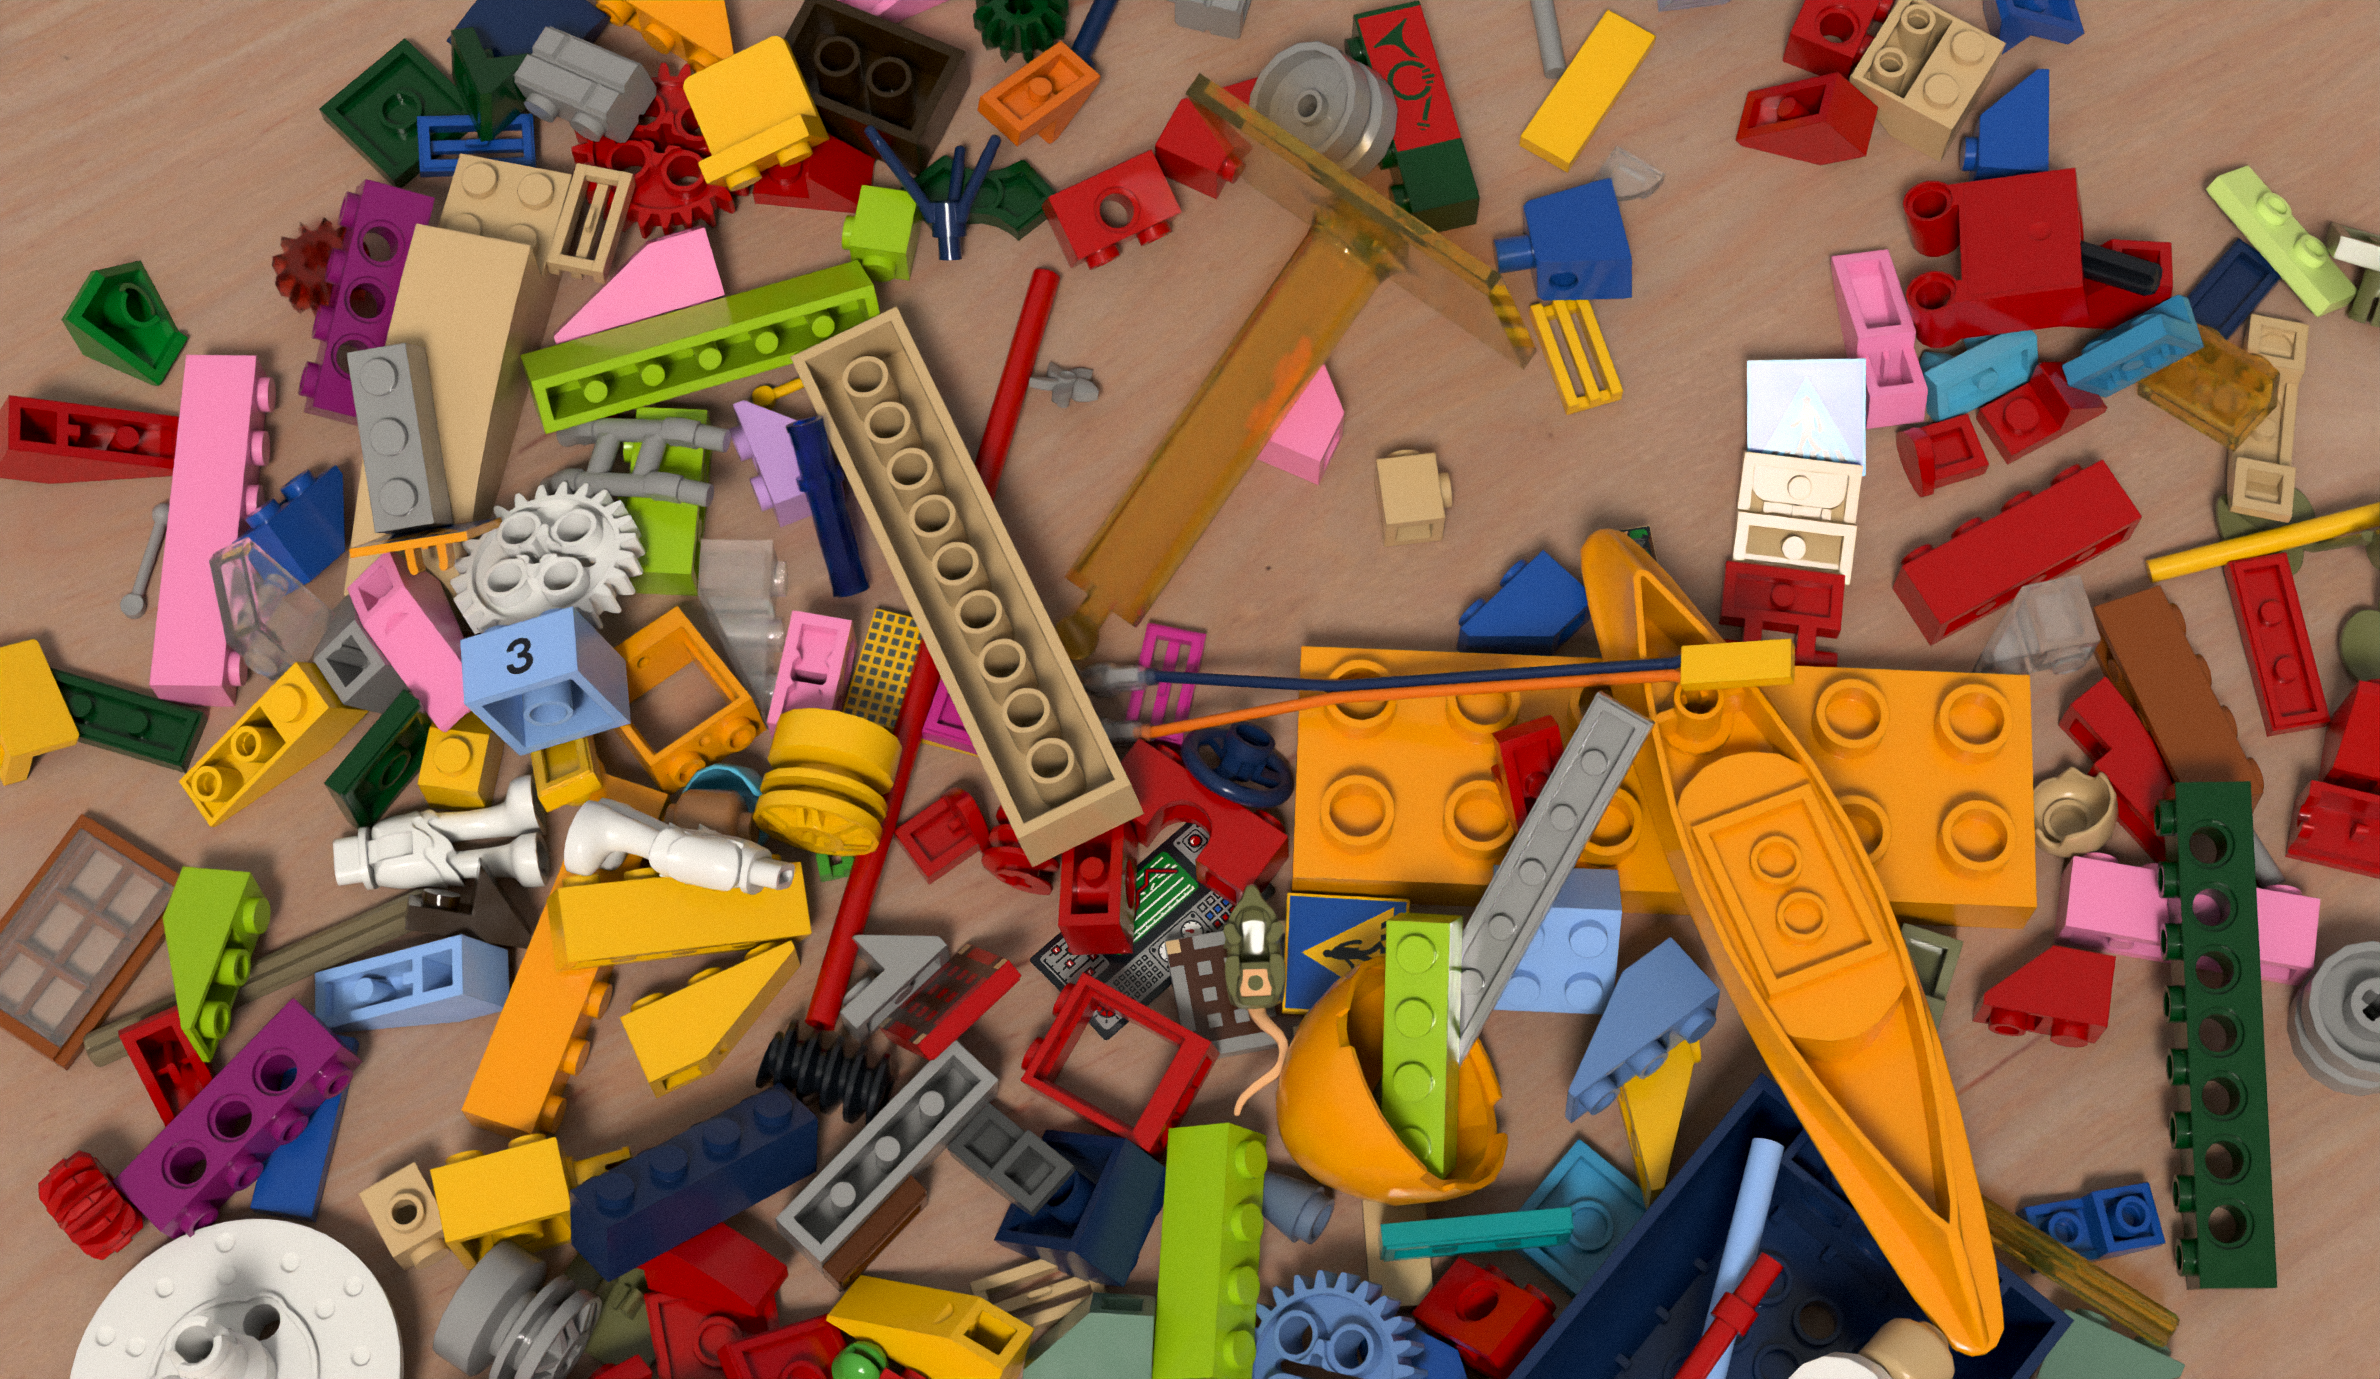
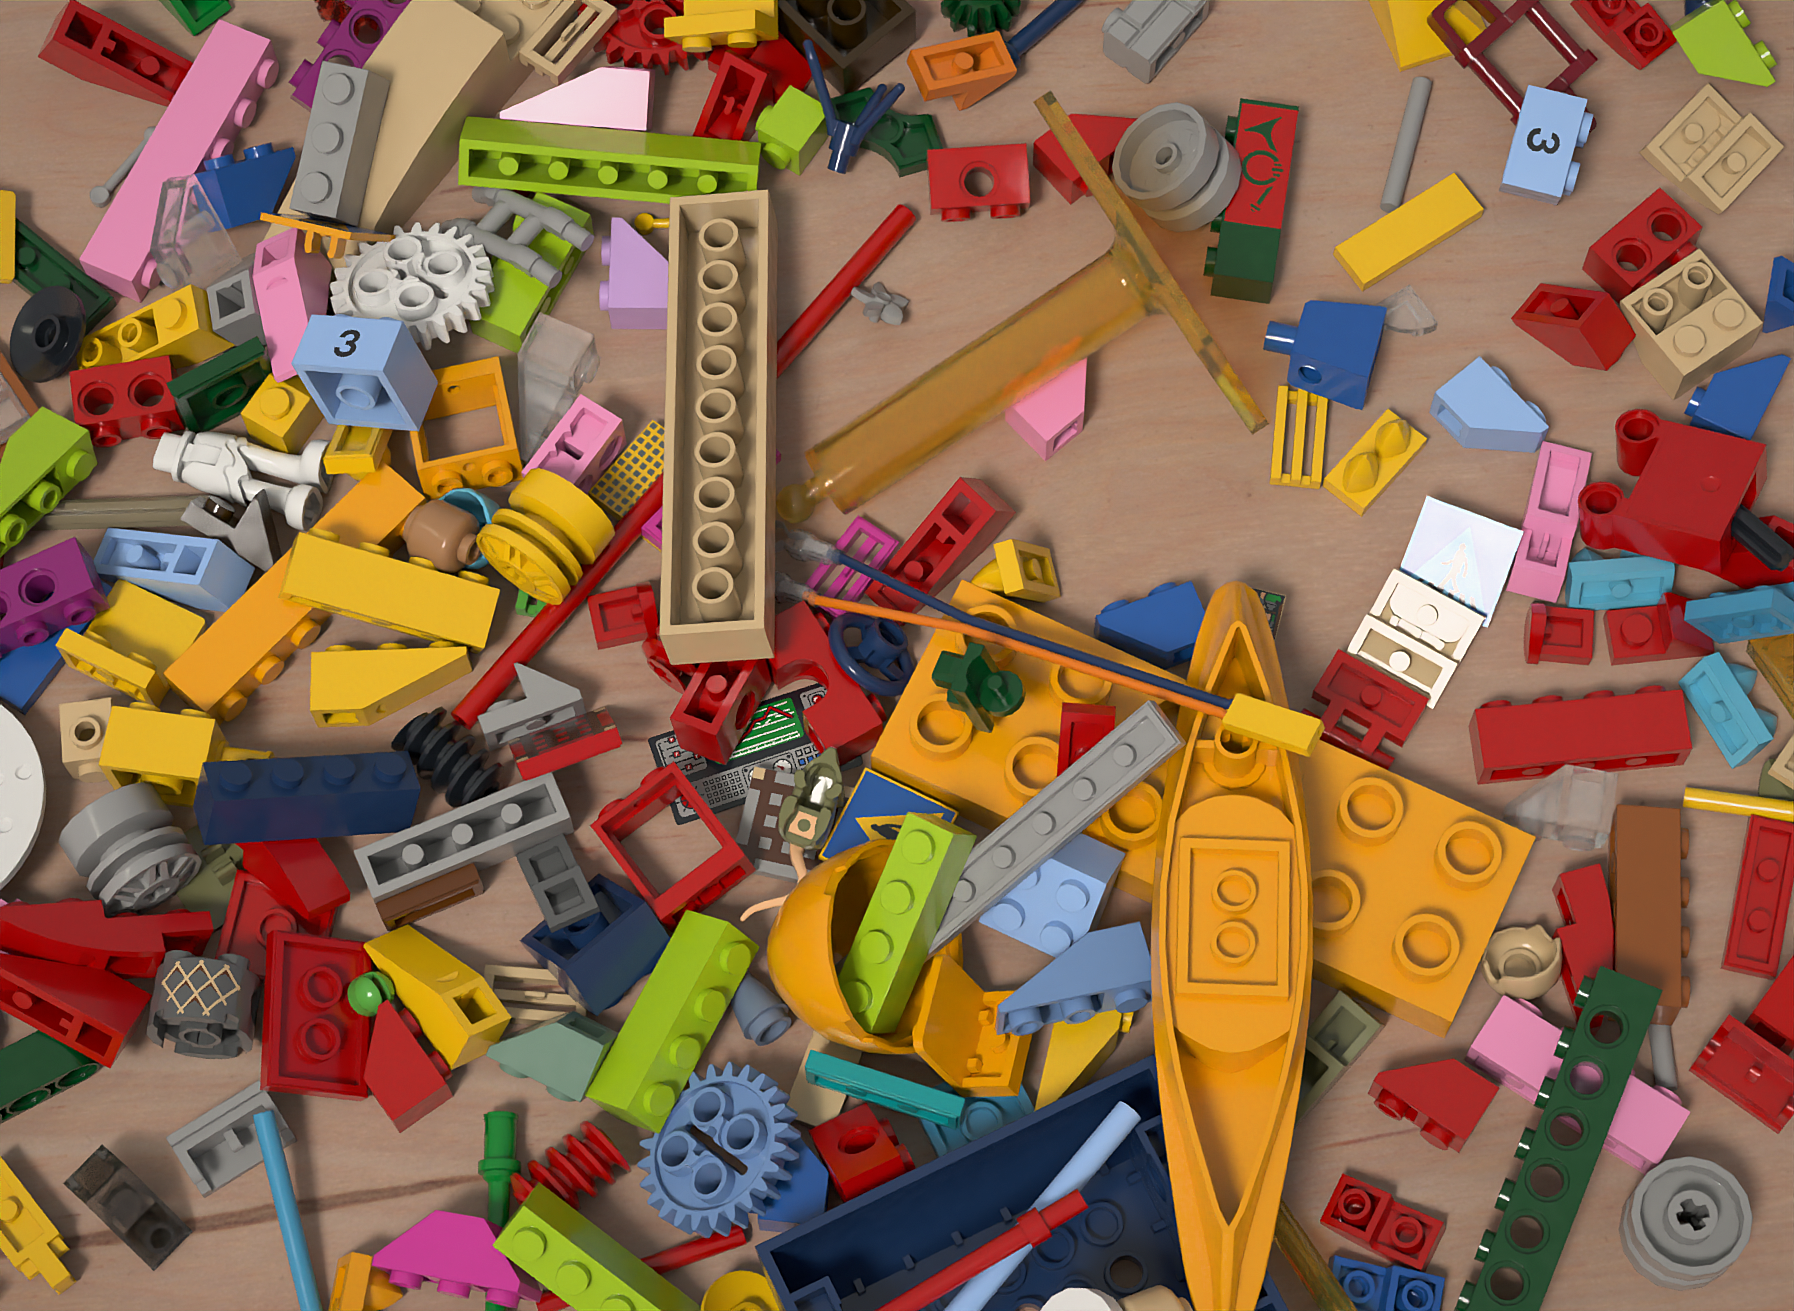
camera: 25 degrees right, 0 degrees up
(148, 783) = (47, 334): none -> black dish
(267, 809) = (127, 388): none -> red brick
(407, 1089) = (132, 642): none -> yellow bracket
(702, 857) = (365, 509): white piece -> none
(807, 224) = (735, 100): none -> red slope
(822, 486) = (647, 317): clear blue pin -> none
(1256, 619) = (943, 544): none -> red slope
(1356, 615) = (1020, 572): none -> yellow tile
(1389, 753) = (978, 686): none -> dark green hips
(1411, 498) = (1109, 499): tan brick -> none
(1534, 1141) = (960, 1035): none -> light orange bracket
(1667, 348) = (1374, 462): none -> yellow tile
(1761, 248) = (1486, 412): none -> light blue slope
(2055, 1154) = (1382, 1225): none -> red slope
(2152, 463) = (1721, 701): none -> medium azure tile

